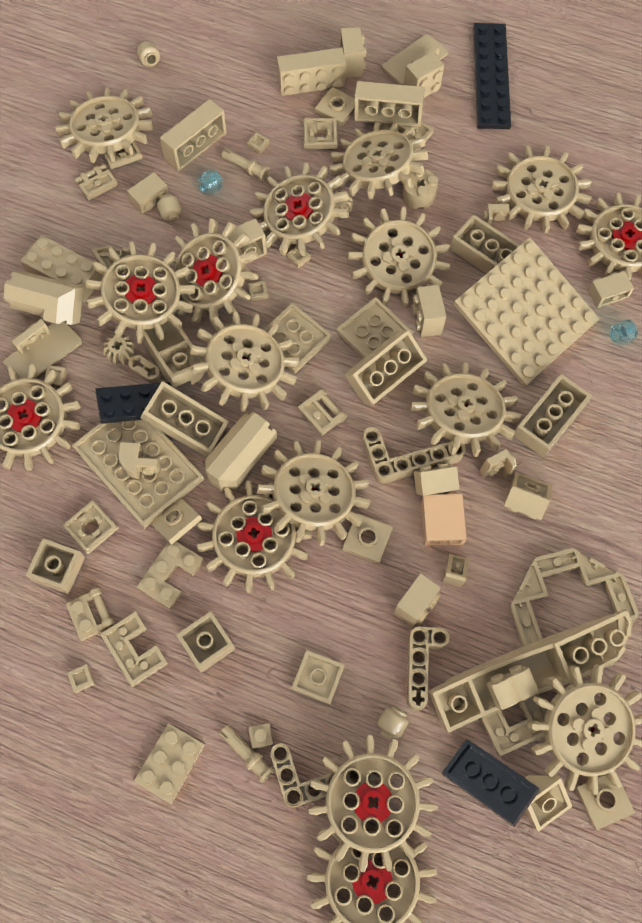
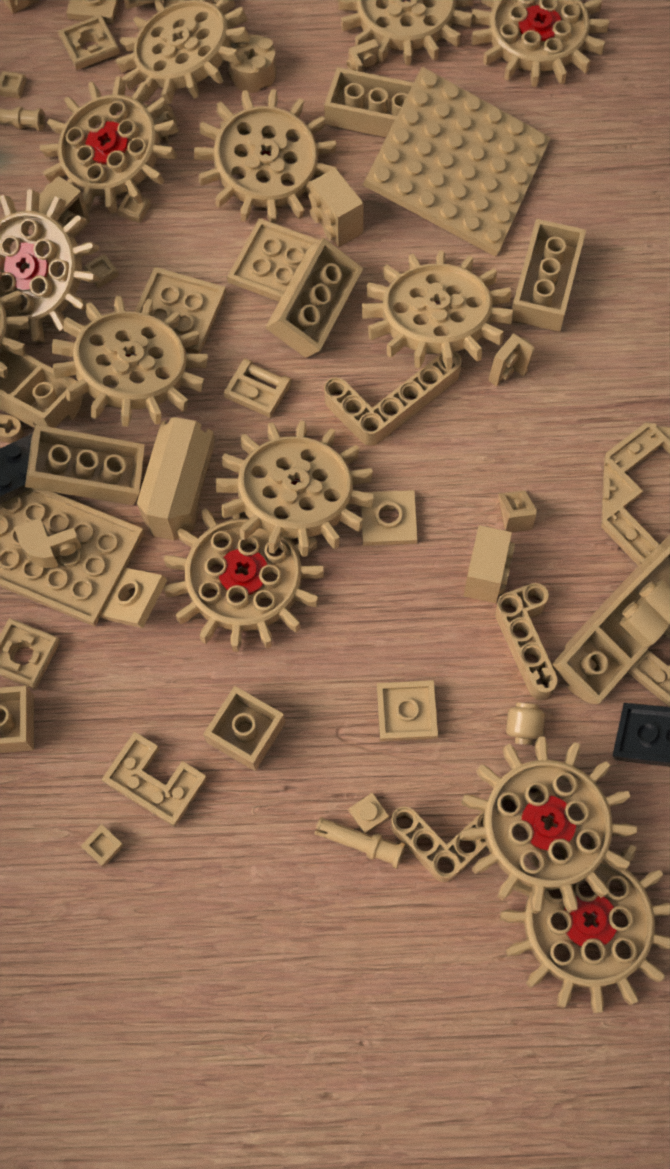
camera: 20 degrees left, 0 degrees up
(84, 618) = (67, 769): tan plate -> none
(155, 580) = (140, 684): tan plate -> none
(169, 763) = (268, 898): tan plate -> none
(436, 480) = (442, 409): tan brick -> none
(443, 519) = (472, 454): light nougat brick -> none
(528, 496) = (563, 384): tan slope -> none
(610, 289) = (547, 96): tan brick -> none
(623, 332) = (587, 141): clear light blue head -> none

